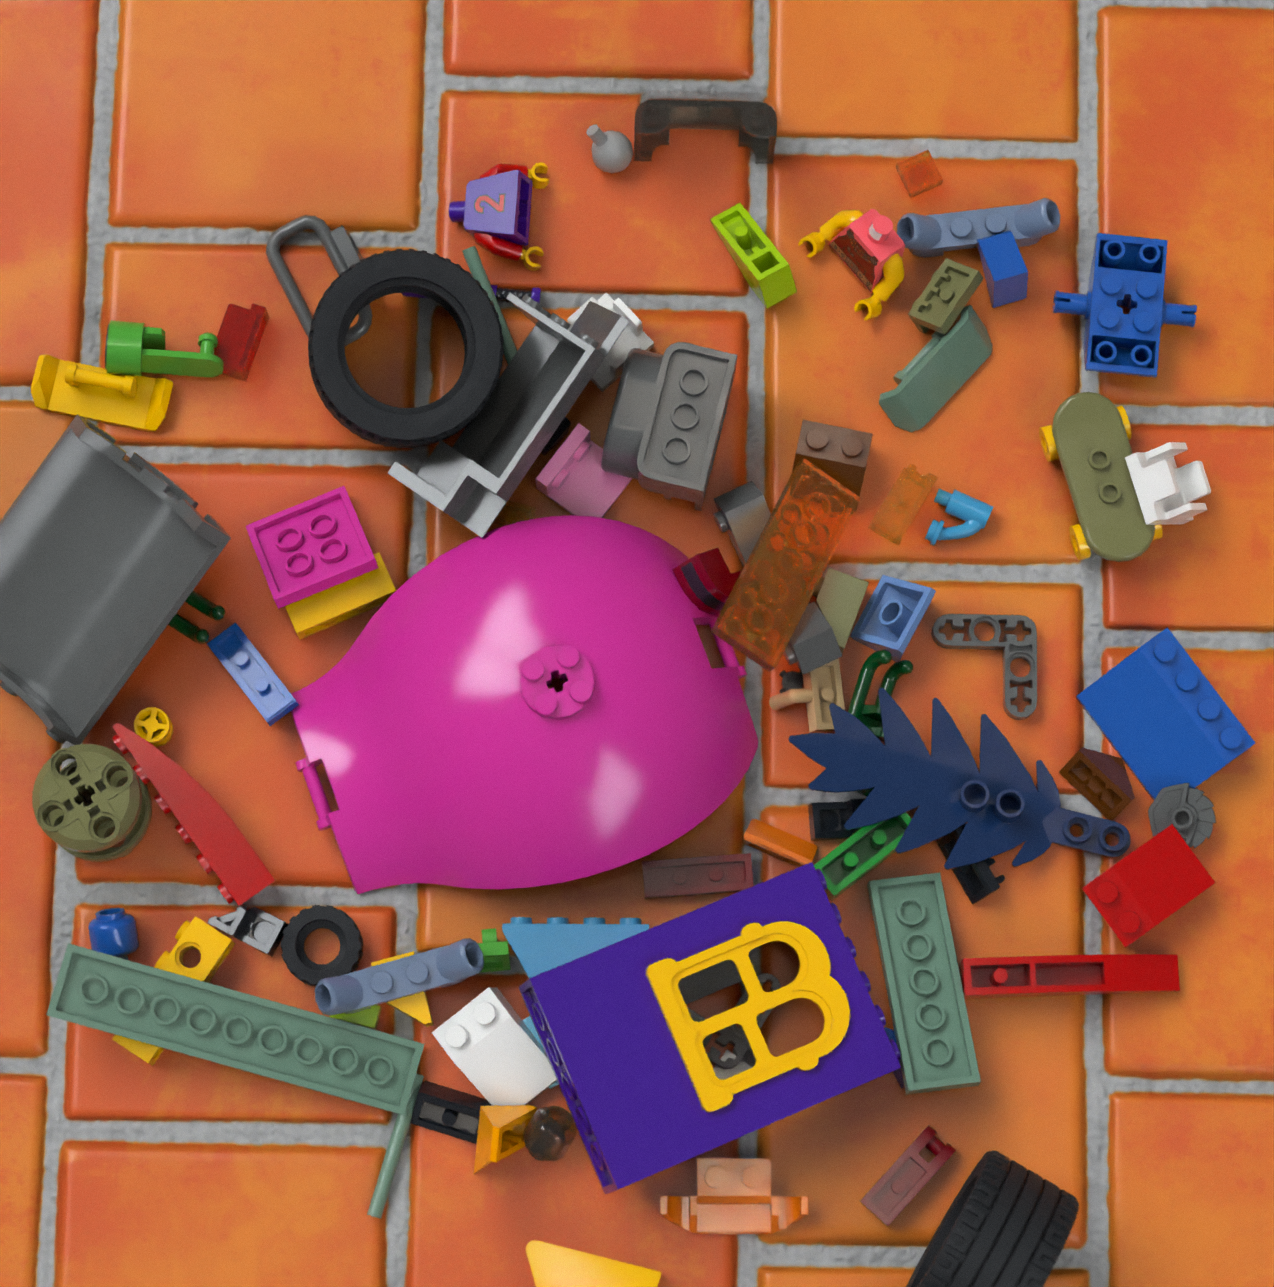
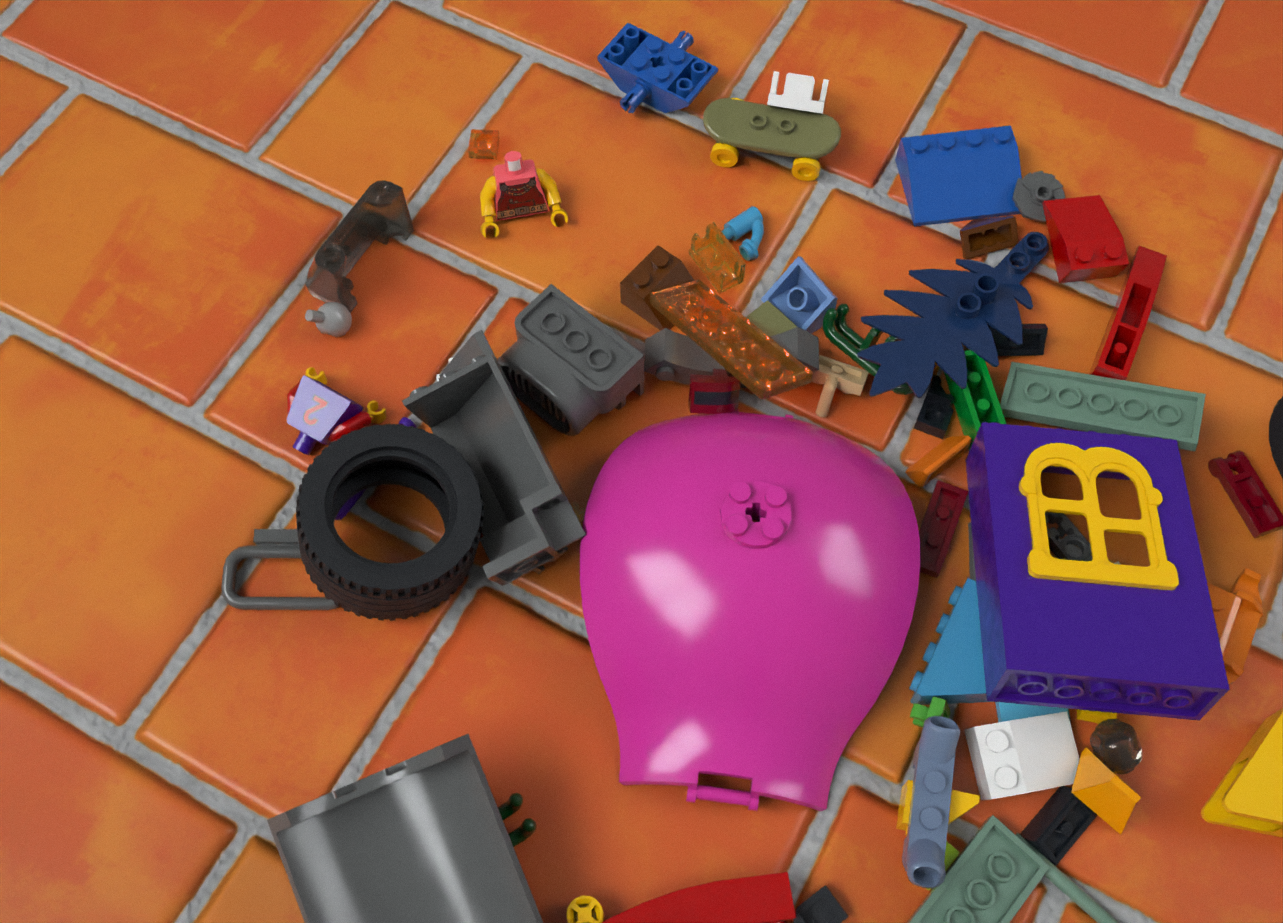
camera: 60 degrees left, 15 degrees down
(98, 396) = (243, 824): yellow piece -> none
(140, 349) = (243, 750): bright green piece -> none
(240, 339) = (291, 667): clear red panel -> none
(252, 674) = (586, 799): tile -> none
(303, 925) = (887, 851): black tyre -> none
(311, 547) = (507, 688): dark pink plate -> none
(341, 601) = (557, 691): yellow brick -> none
(576, 477) = (573, 458): bright pink bracket -> none
(755, 255) = (476, 264): lime slope -> none
(791, 680) = (811, 393): black piece -> none
(937, 372) = (642, 209): sand green piece -> none
(944, 297) = (584, 162): olive bracket -> none
(960, 230) = (550, 119): sand blue plate -> none
(1003, 268) = (586, 121): blue slope -> none
(1011, 649) = (860, 245): dark grey beam -> none

